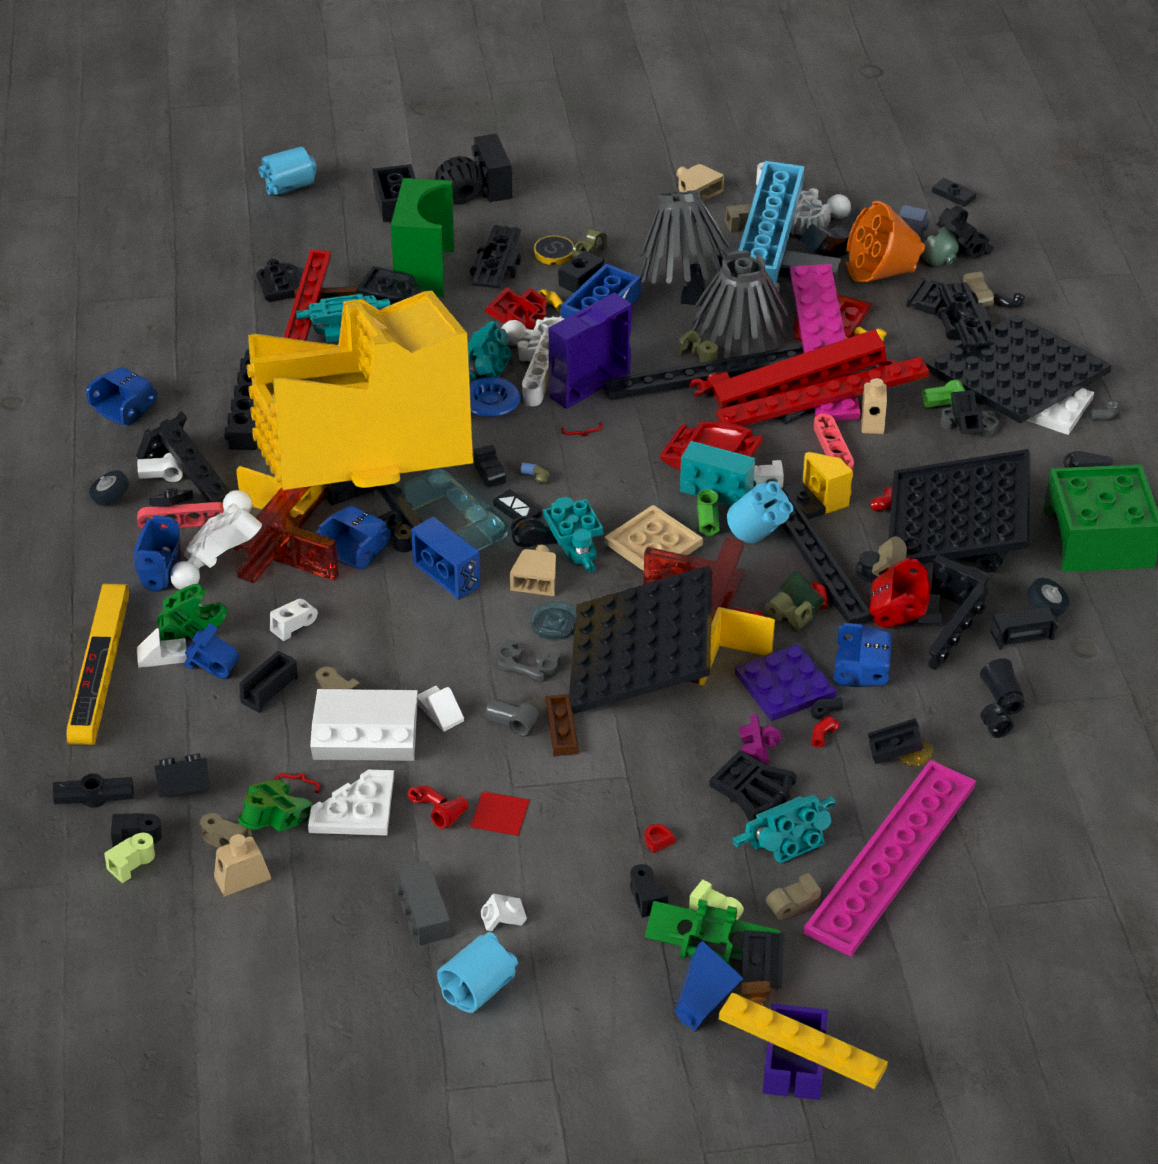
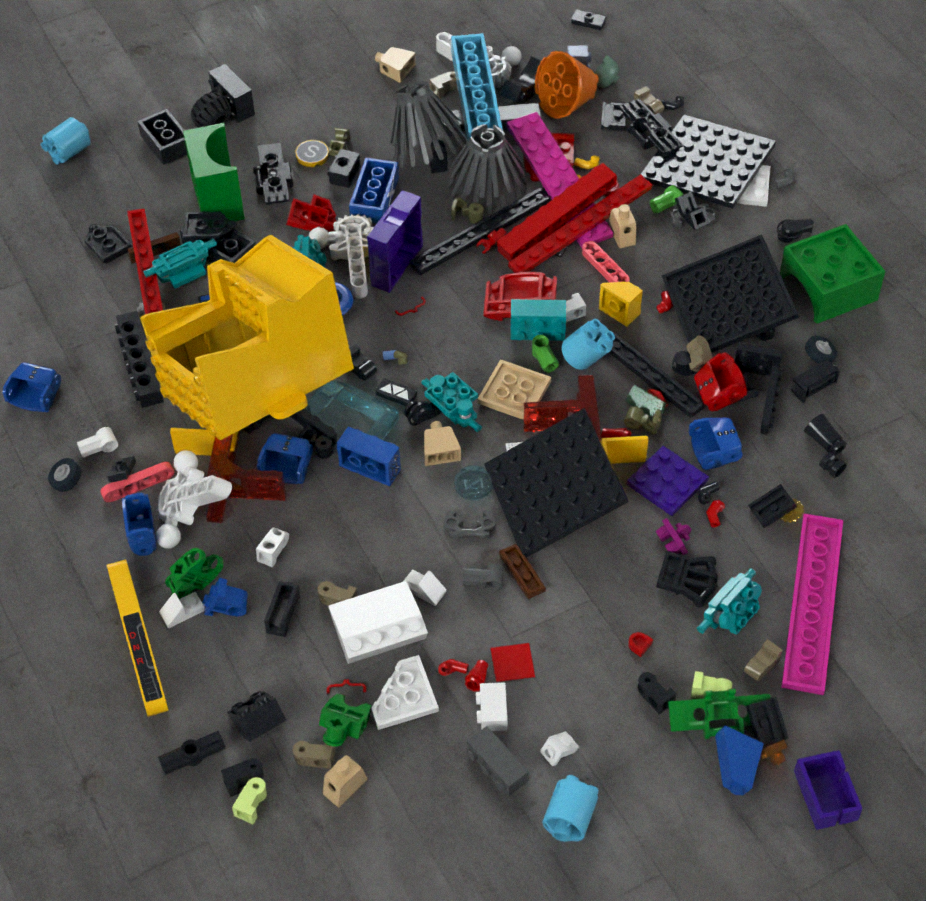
camera: 20 degrees left, 10 degrees up
(173, 438) = (118, 428): black bracket -> none
(449, 847) = (493, 706): none -> white brick
(552, 299) = (334, 198): yellow arm -> none
(803, 1040) = (835, 782): yellow plate -> none
(805, 499) = (609, 319): black plate -> none
(969, 238) = (625, 59): black plate -> none

